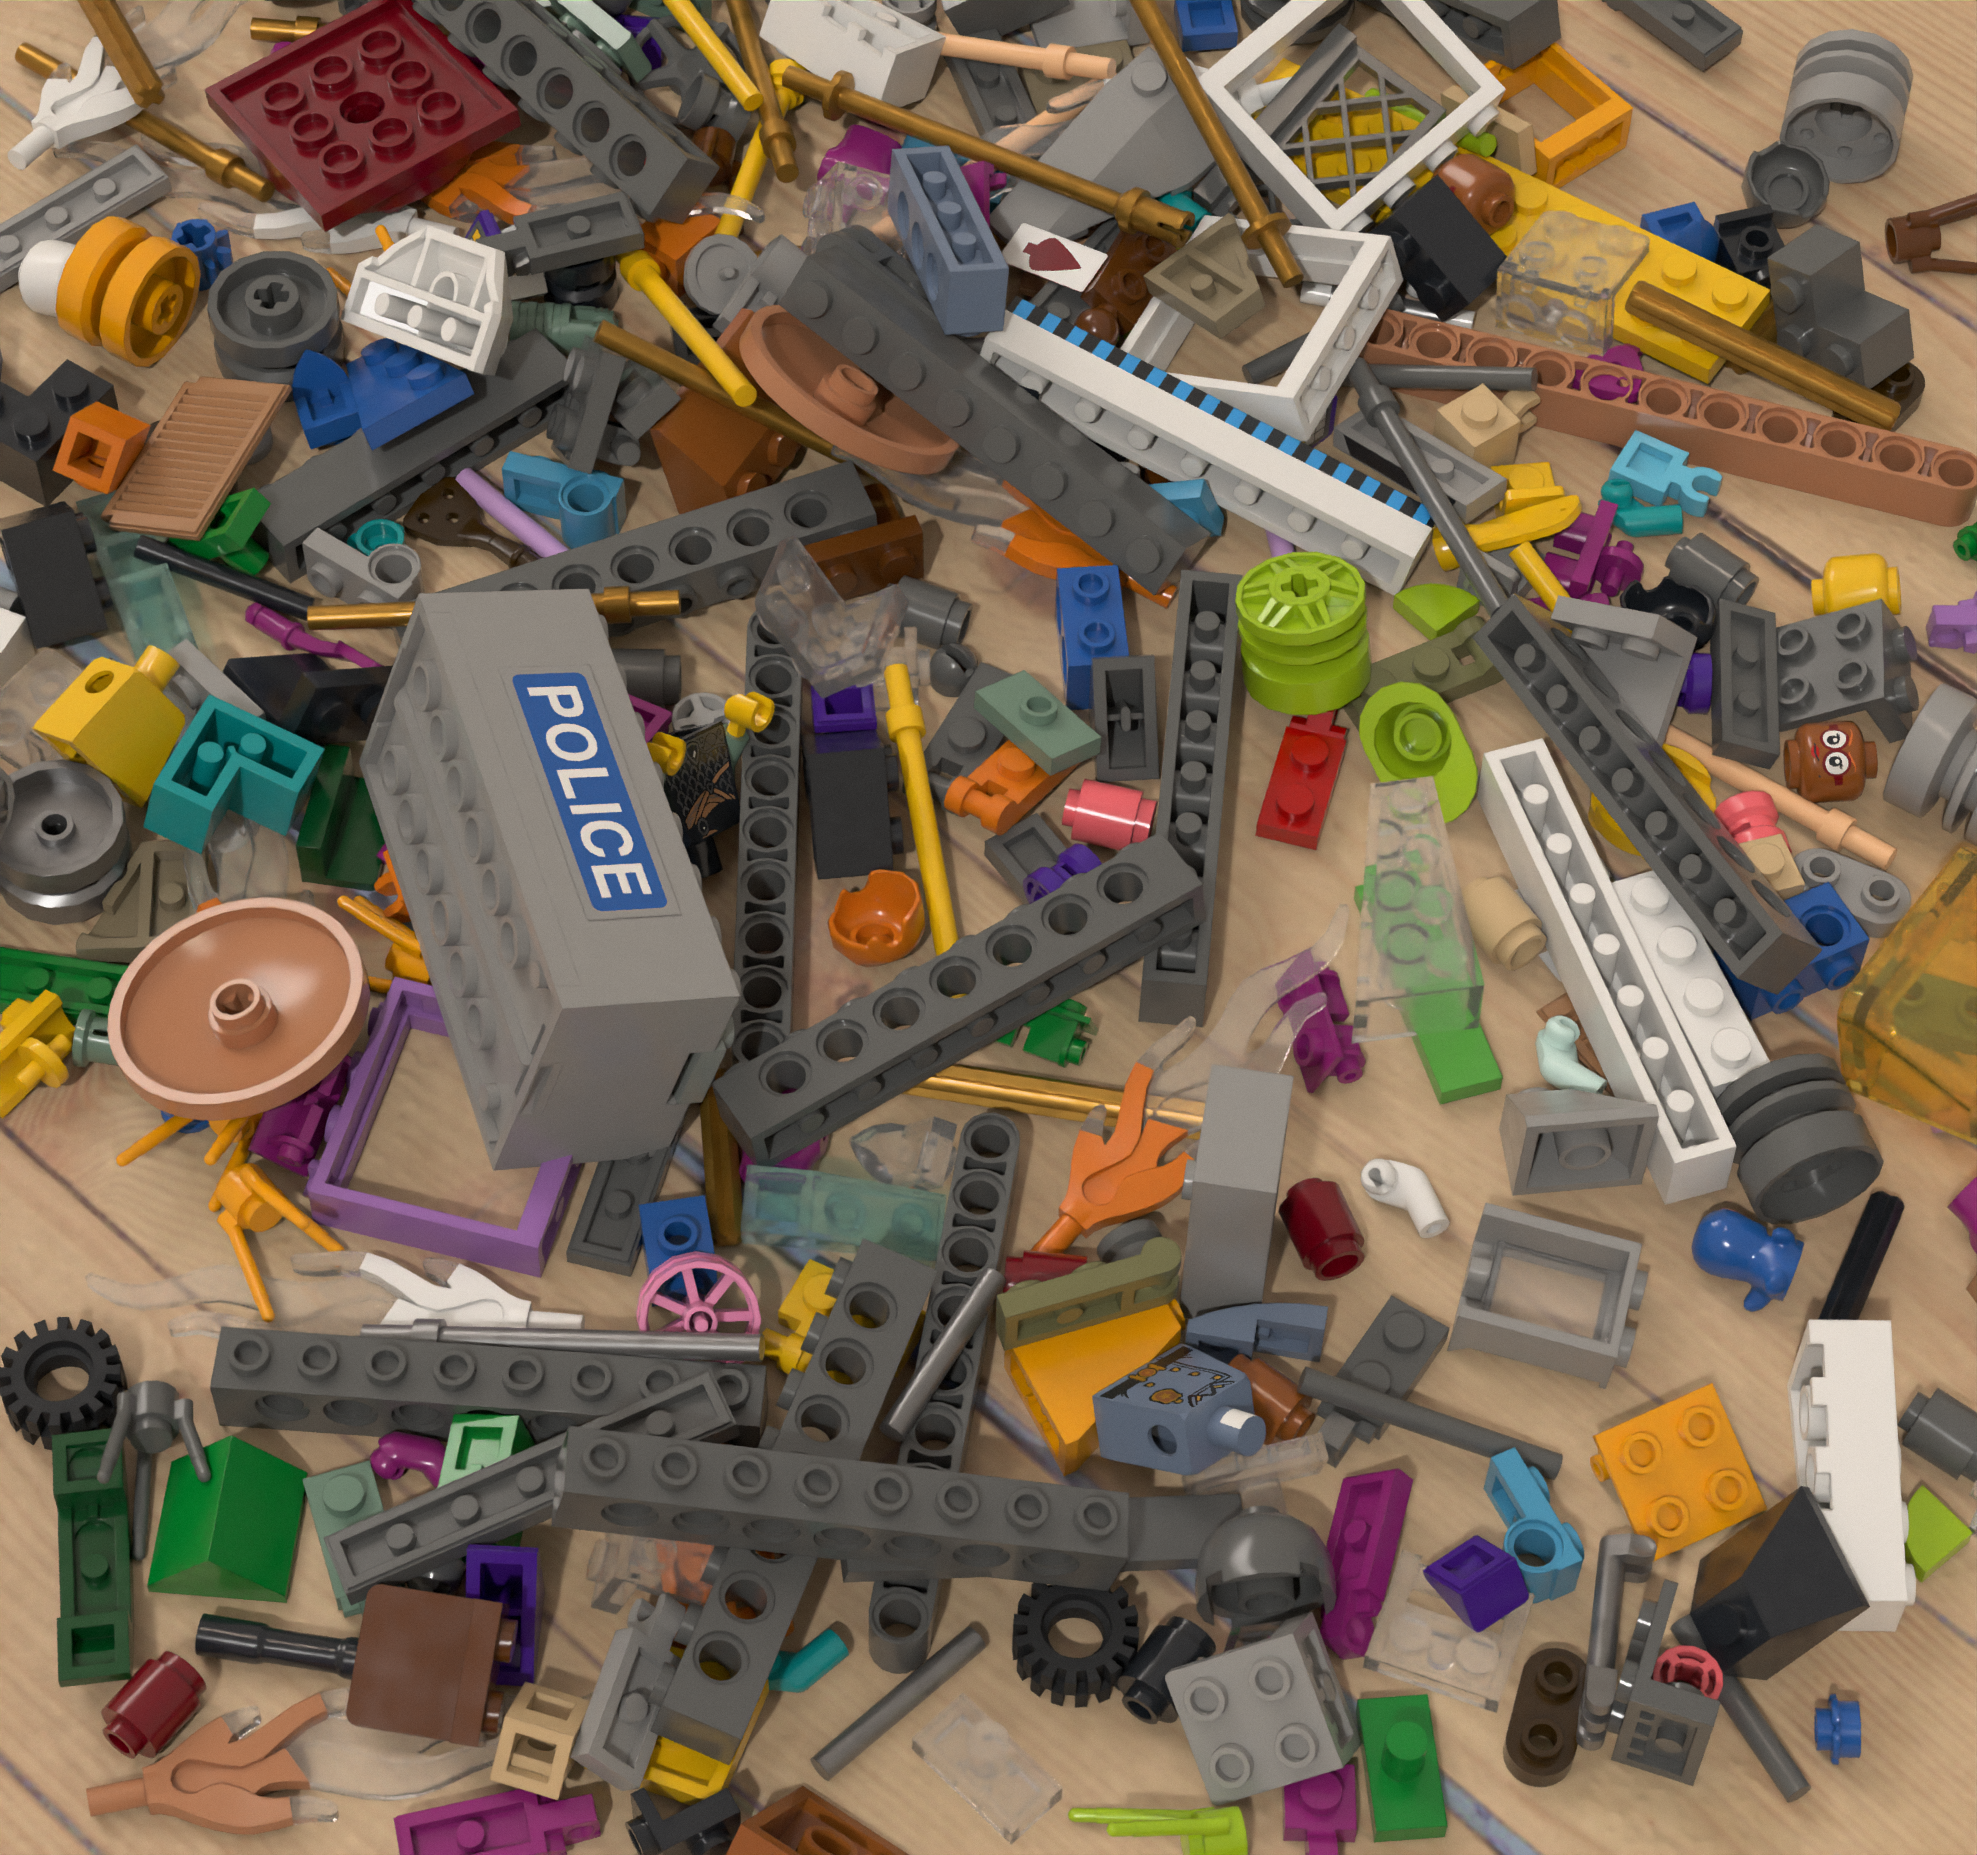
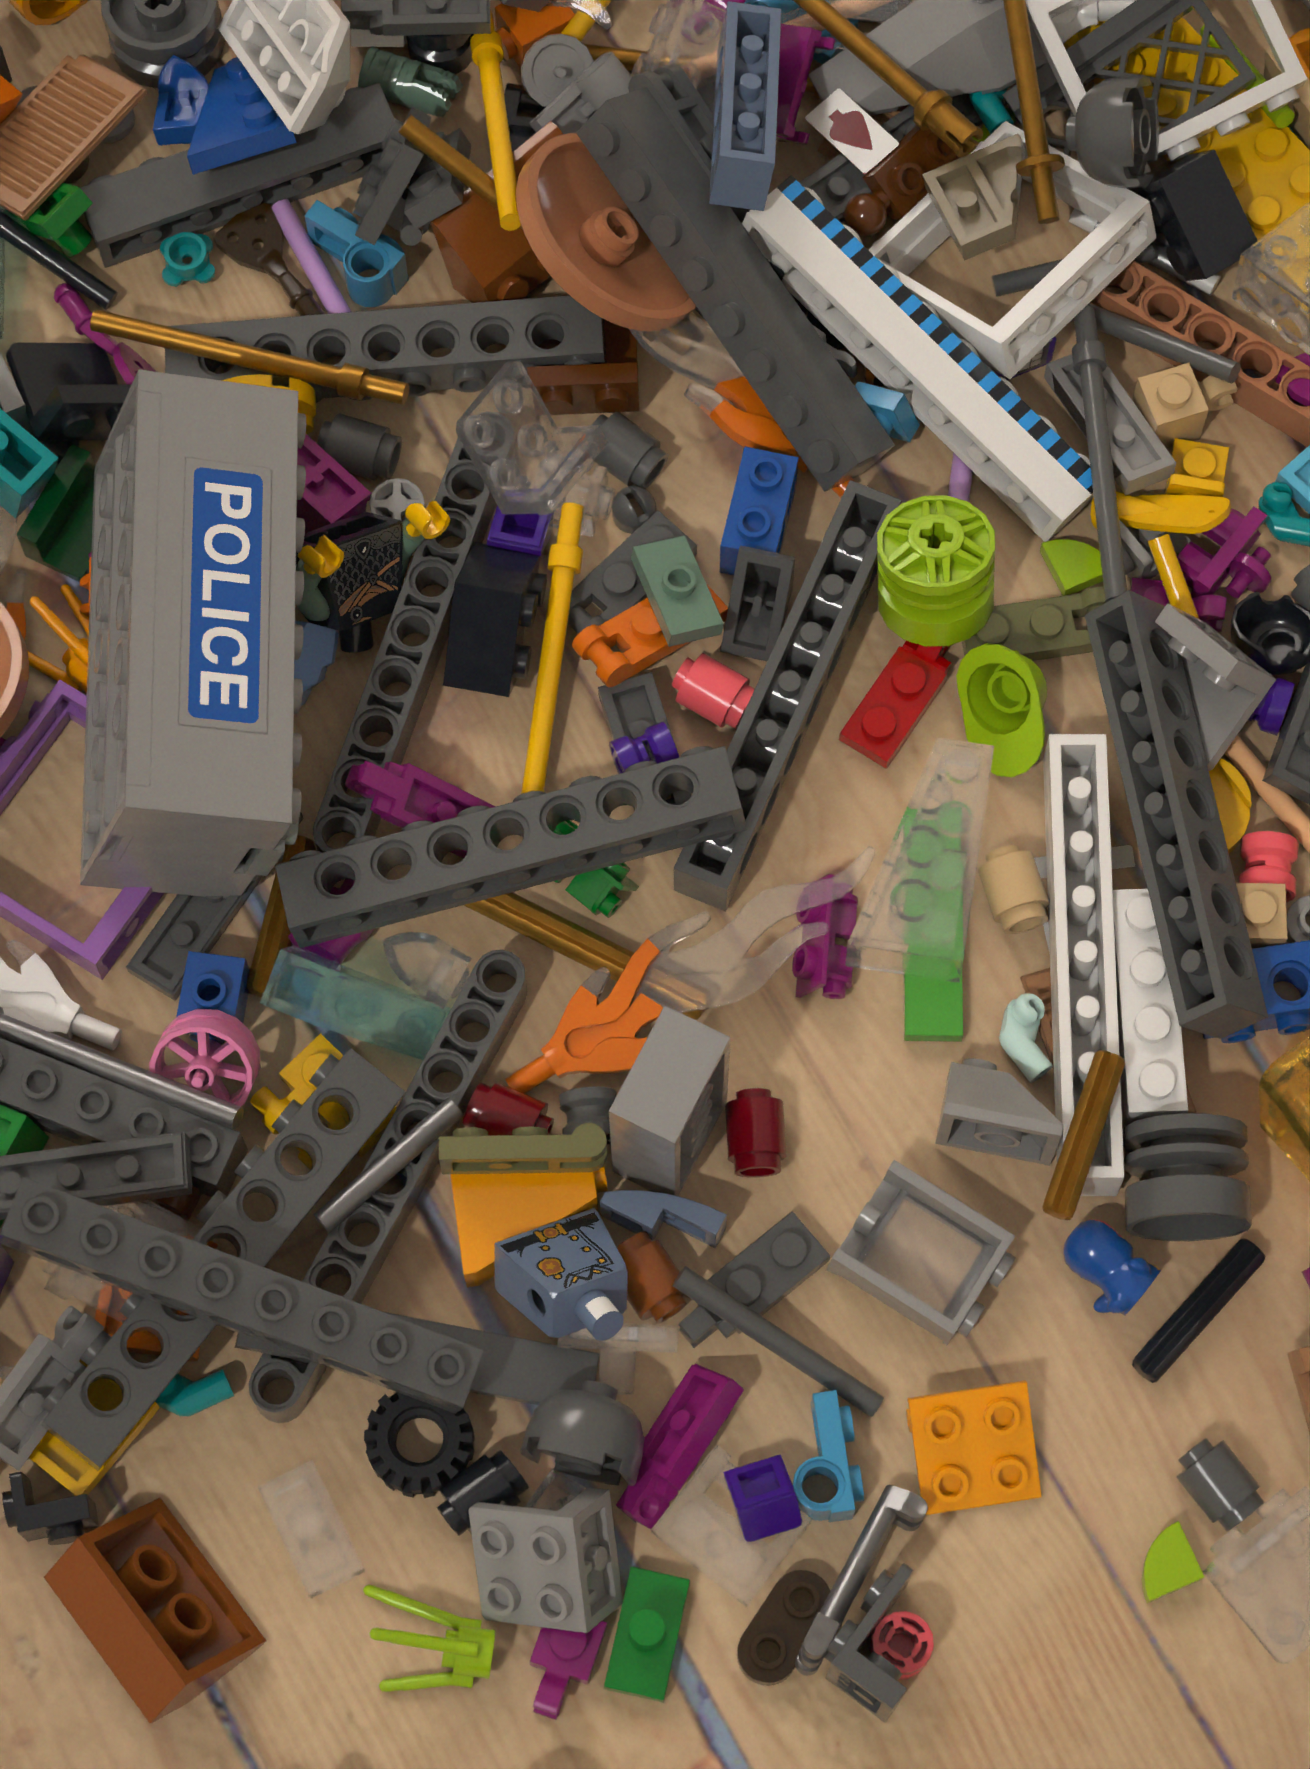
camera: 20 degrees right, 15 degrees up
(342, 572) = (162, 288): light grey plate -> none
(817, 982) = (409, 794): none -> magenta hinge
(878, 921) = (481, 737): orange hair -> none
(898, 1703) = (259, 1450): flat silver bar -> none
(1332, 178) = (1116, 132): none -> dark grey cylinder
(1406, 1189) = (842, 1114): white arm -> none
(1481, 188) = (1252, 168): dark orange head -> none
(1680, 1113) = (1083, 1135): none -> pearl gold axle
(1751, 1723) = (948, 1670): dark grey bar -> none
(1774, 1590) = (1004, 1584): black slope -> none
(1838, 1729) = (1021, 1716): blue plate -> none
(1852, 1457) = (1113, 1503): white wedge -> none

